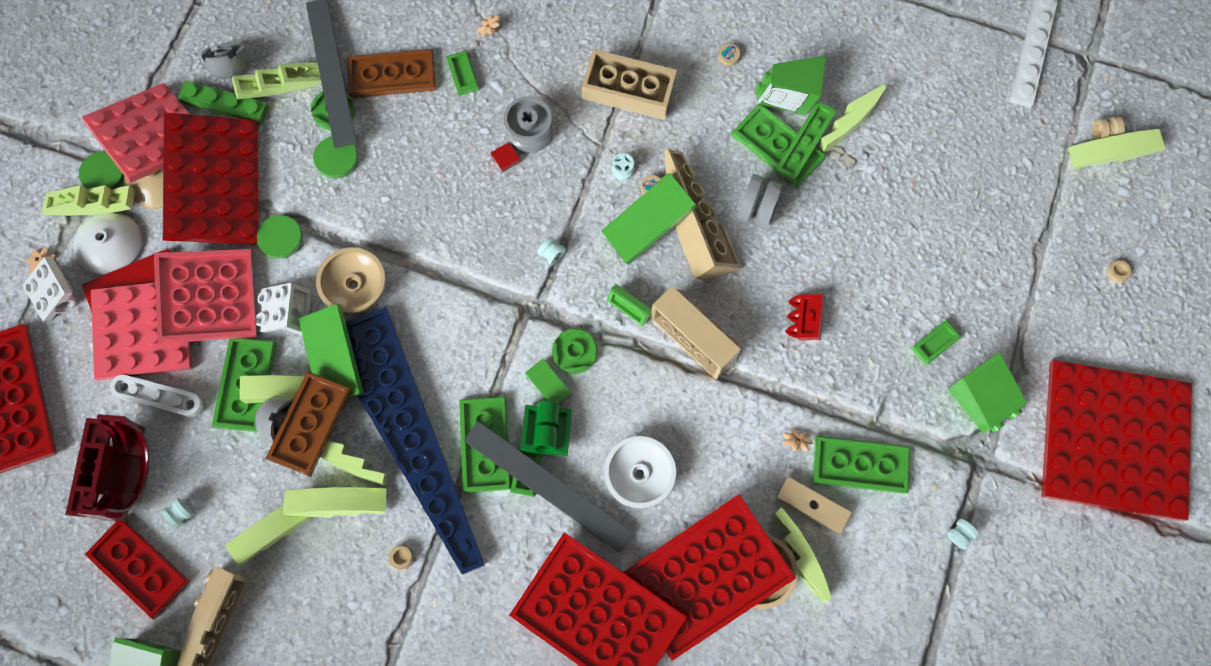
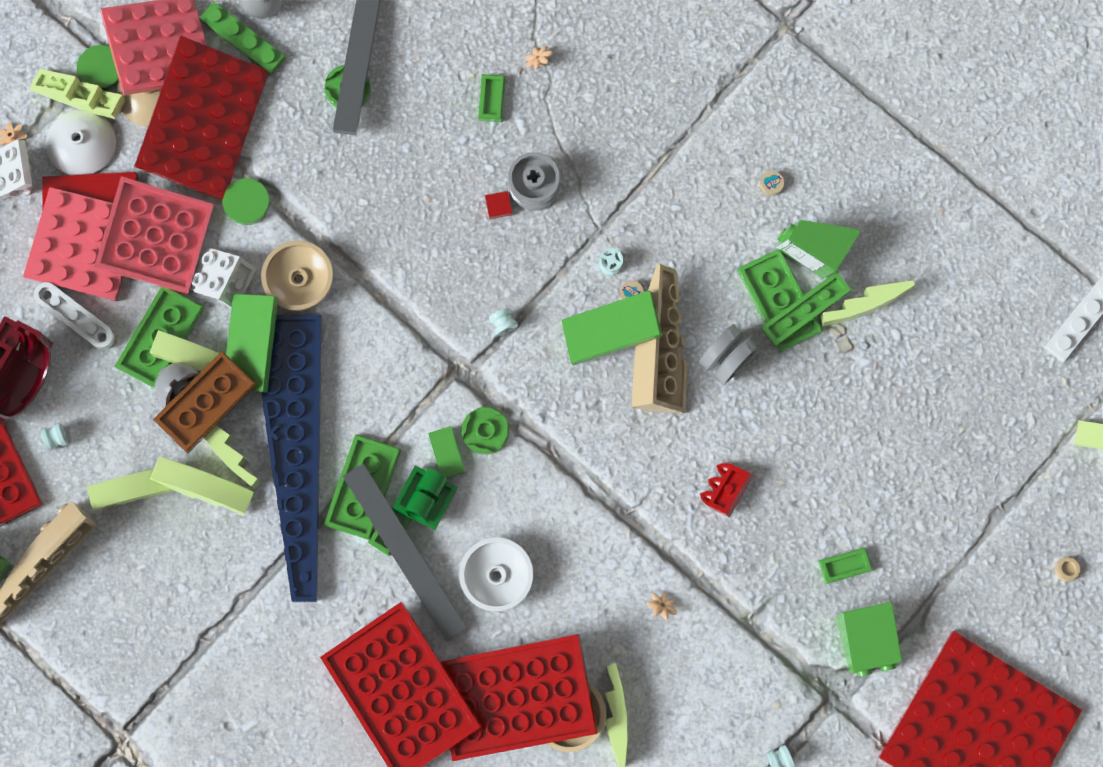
camera: 25 degrees right, 5 degrees up
(270, 82) = (303, 37): yellowish green slope -> none
(333, 161) = (329, 145): bright green tile -> none
(391, 73) = (420, 71): dark orange tile -> none
(401, 557) = (242, 562): tan tile -> none
(628, 84) = (652, 178): tan brick -> none
(629, 305) = (556, 407): bright green tile -> none
(695, 332) = (606, 460): tan brick -> none
(826, 511) = (659, 686): tan tile -> none
(861, 465) = (714, 654): bright green tile -> none

